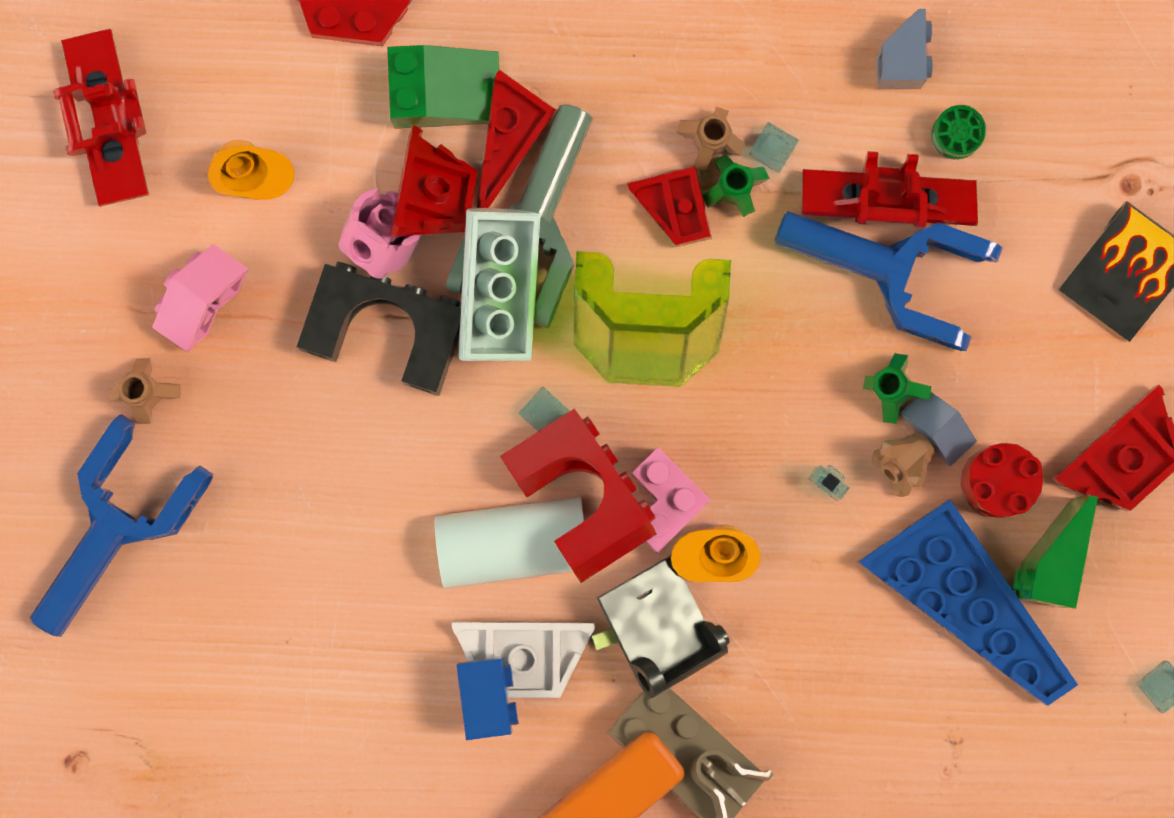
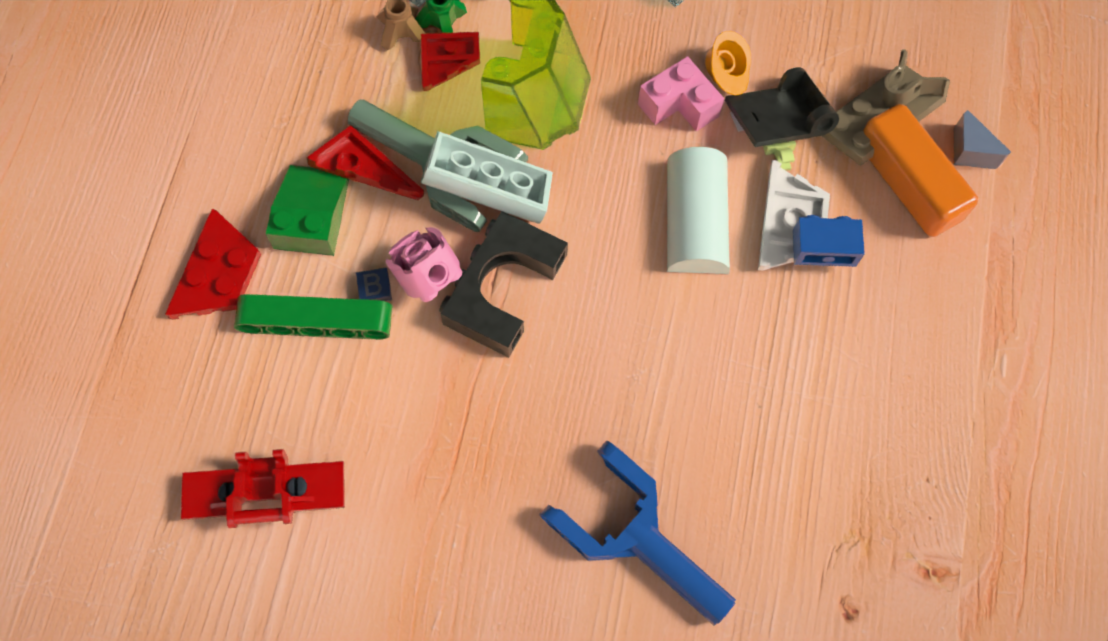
camera: 85 degrees left, 15 degrees down
(142, 391) = (521, 493): medium nougat rock -> none
(197, 295) = (449, 425): bright pink brick -> none
(250, 171) = (343, 368): light orange piece -> none
(308, 123) = (313, 316): none -> green beam
(359, 179) = (374, 285): none -> dark blue tile
(432, 190) = (395, 219): red wing -> none
(542, 409) = (595, 176): clear light blue plate -> none
(618, 522) = (629, 148): red arch -> none

